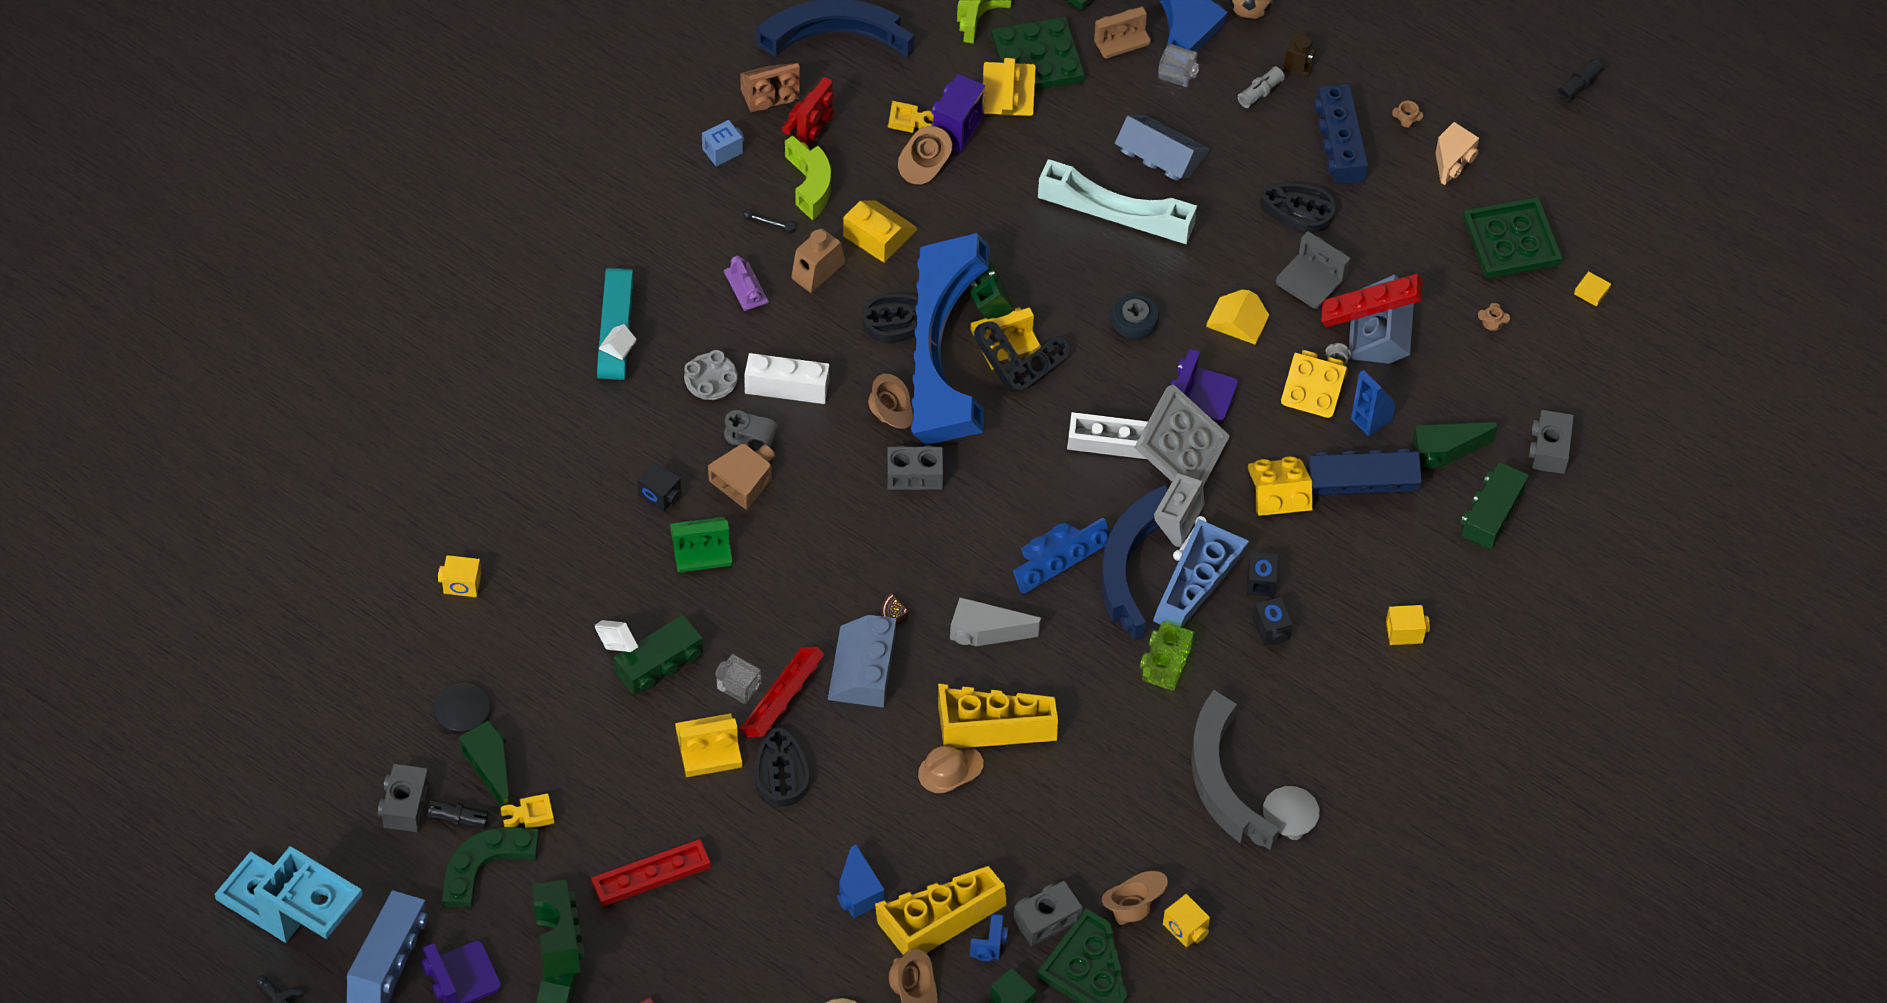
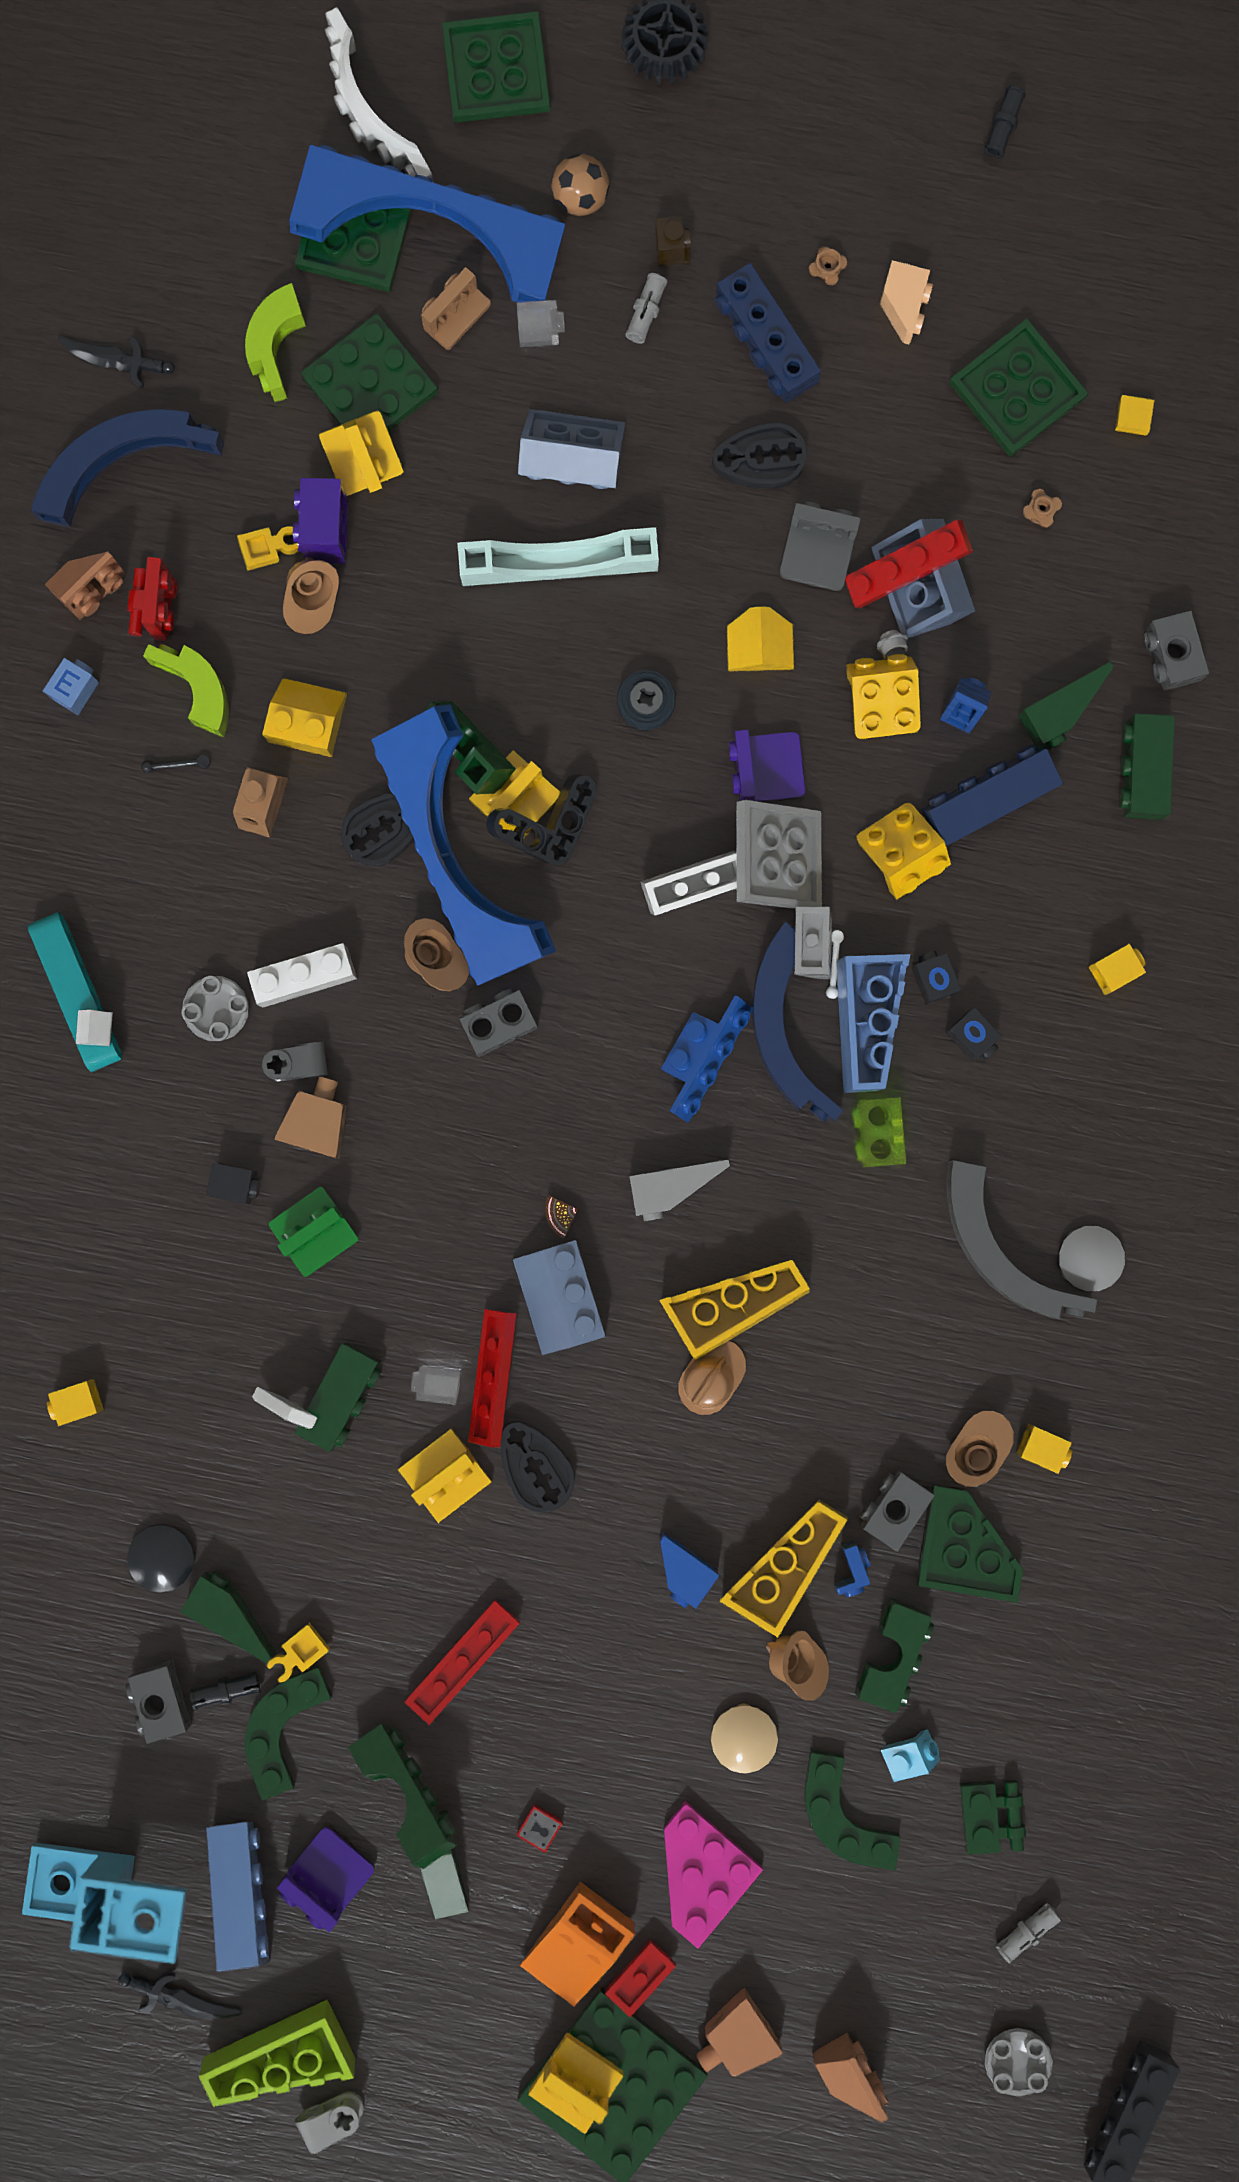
camera: 25 degrees left, 30 degrees up
(745, 284) = (193, 867): medium lavender hinge -> none

